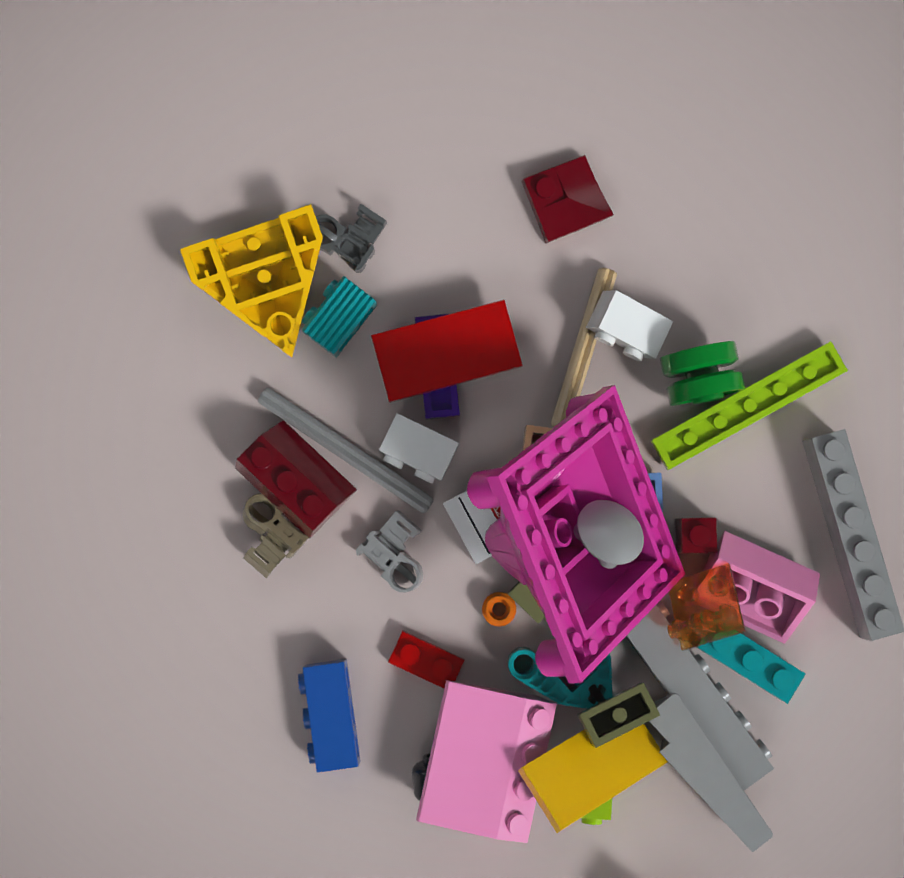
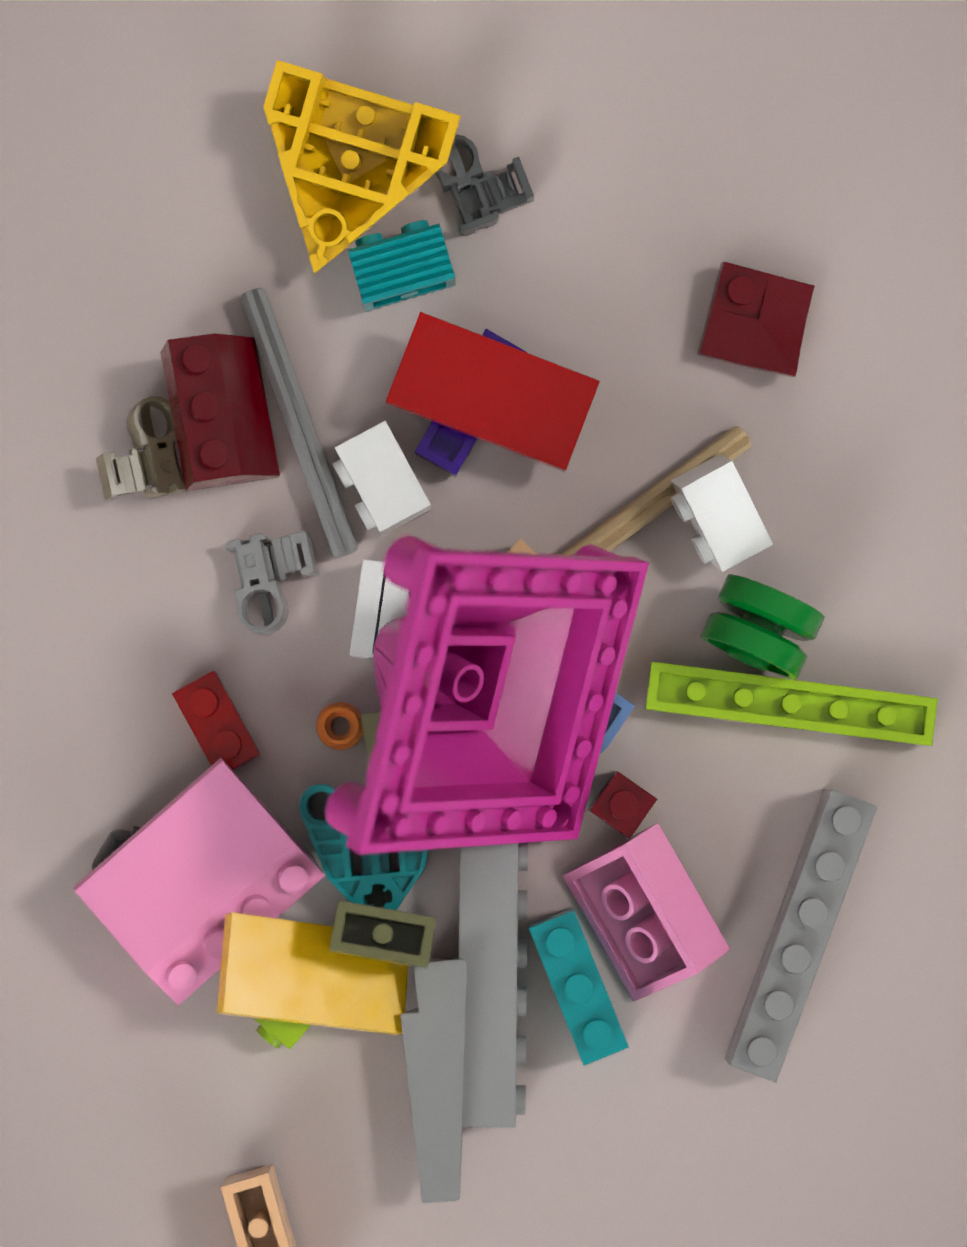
camera: 30 degrees right, 0 degrees up
(329, 716) = (63, 705): blue brick -> none
(609, 533) = (520, 723): light grey dish -> none
(705, 608) = (569, 890): clear orange hinge -> none

